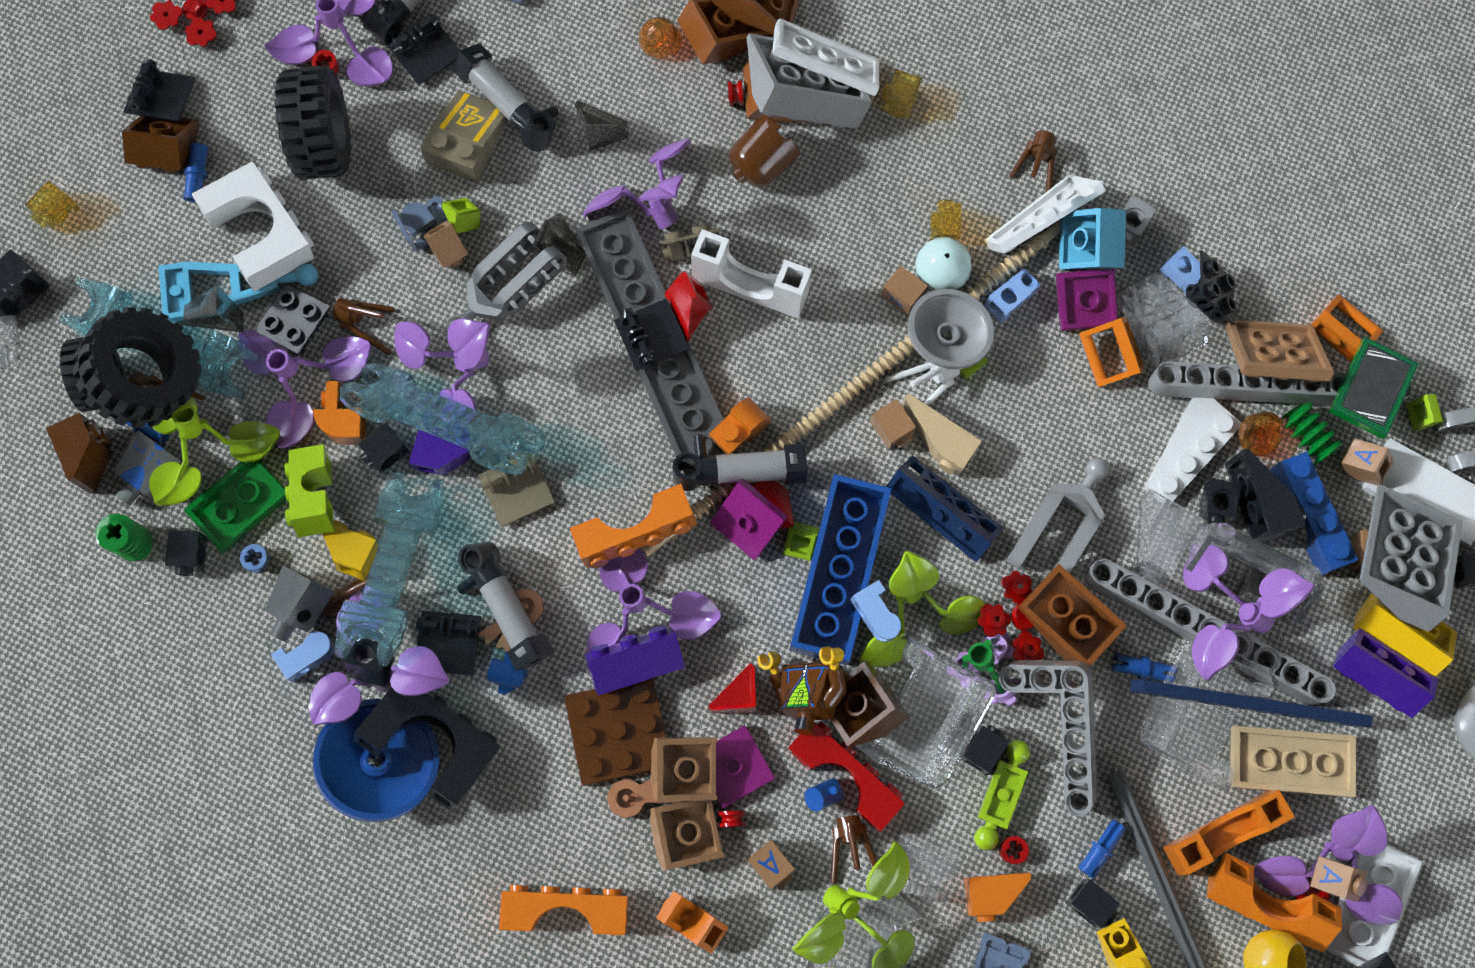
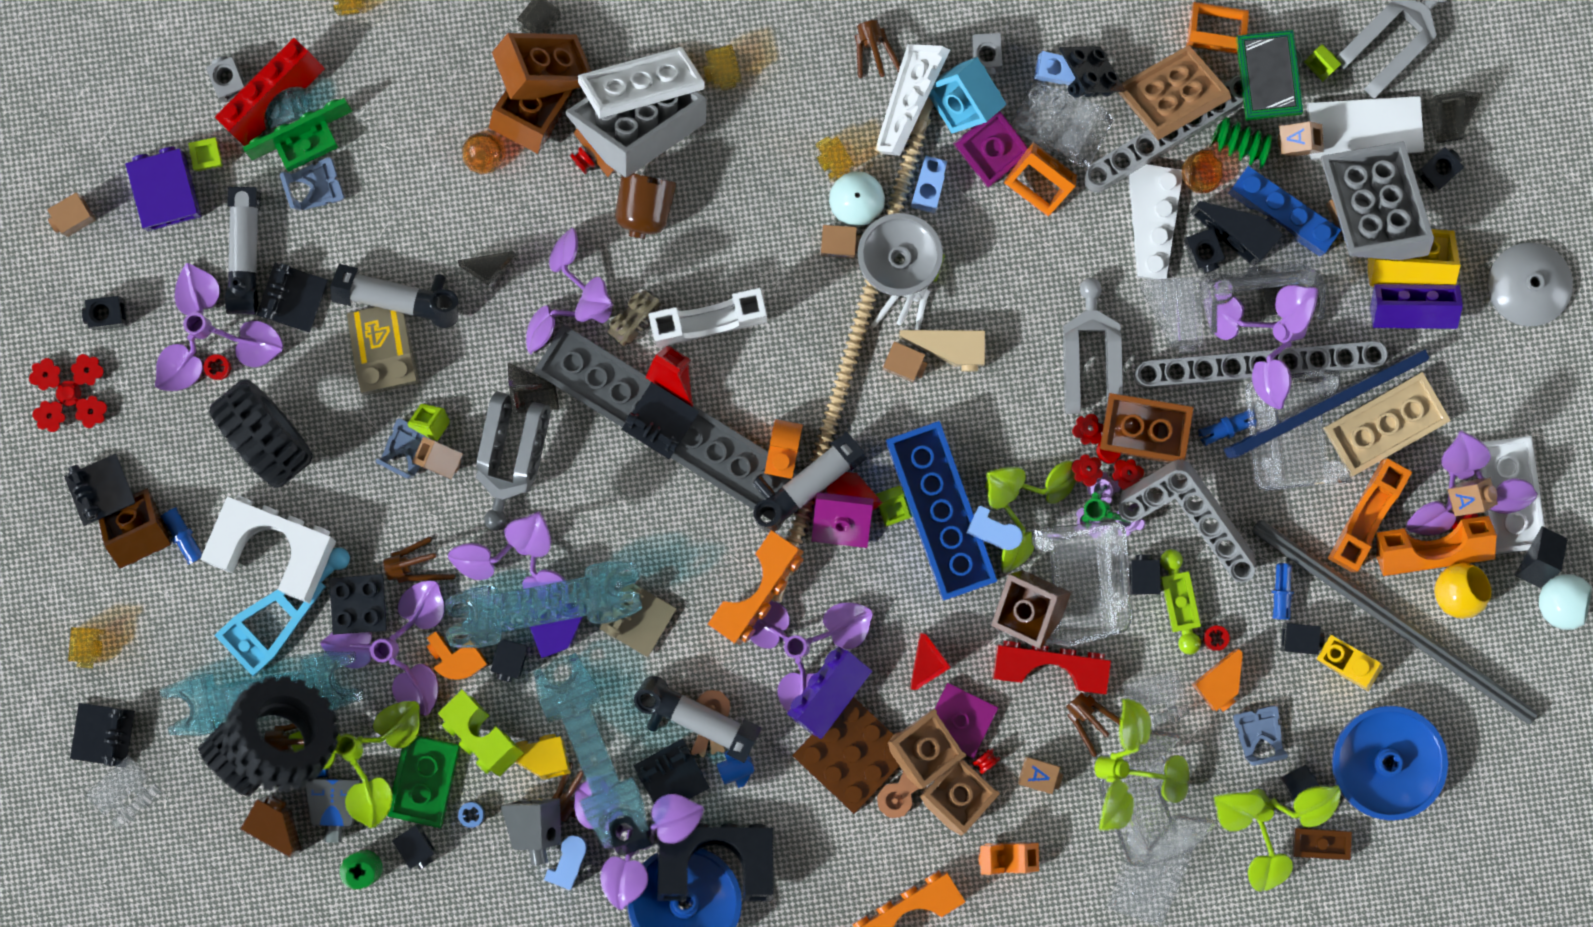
camera: 30 degrees left, 10 degrees up
(214, 311) = (291, 643): clear smoke slope -> none
(416, 218) = (396, 451): sand blue tile -> none
(807, 689) = (979, 624): reddish brown torso -> none
(824, 795) = (1044, 695): blue piece -> none
(941, 510) = (989, 407): dark blue fence -> none

